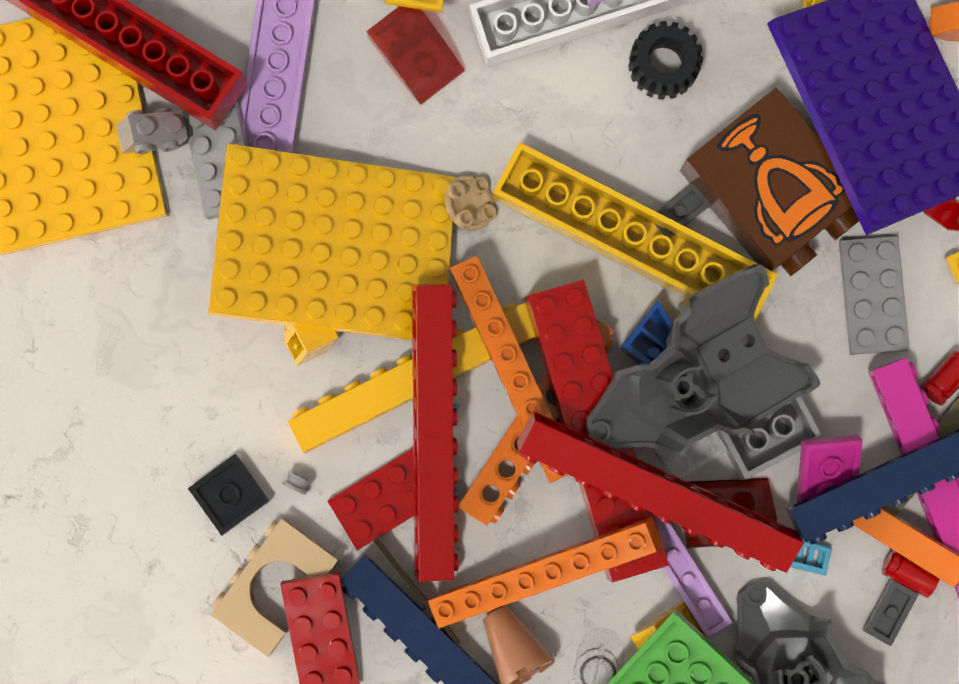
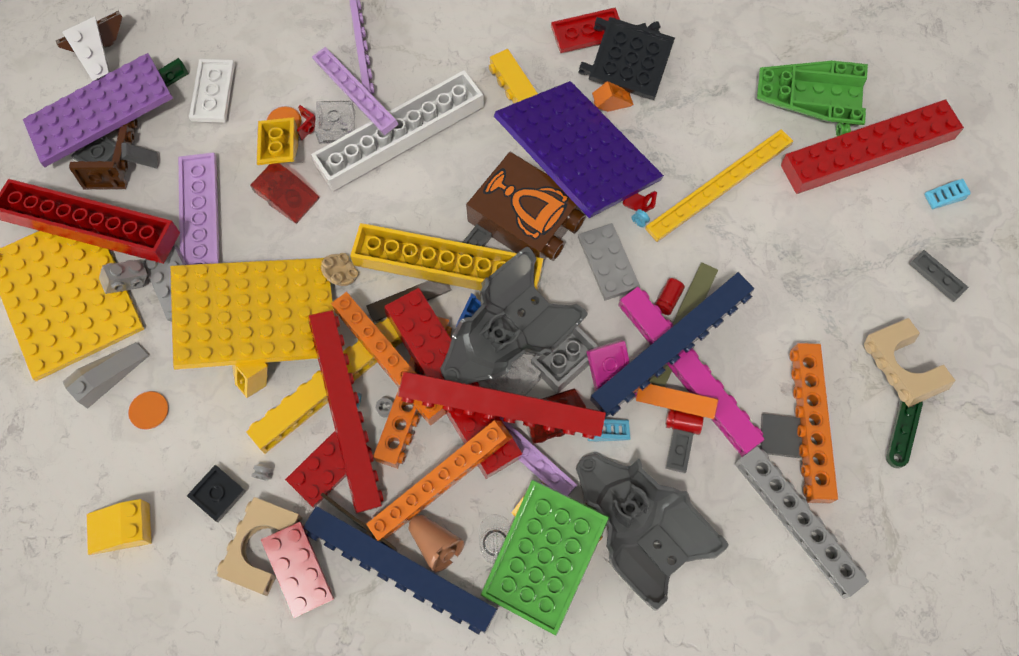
camera: 15 degrees left, 15 degrees down
(86, 506) = (119, 527): none -> yellow slope
(92, 273) = (98, 377): none -> light grey wedge
(153, 344) = (148, 410): none -> orange piece
(493, 424) = (386, 401): none -> light grey bush
(556, 273) = (429, 289): none -> dark brown piece
(675, 40) = (437, 147): black tyre -> none
(943, 240) = (640, 218): none -> medium azure bush

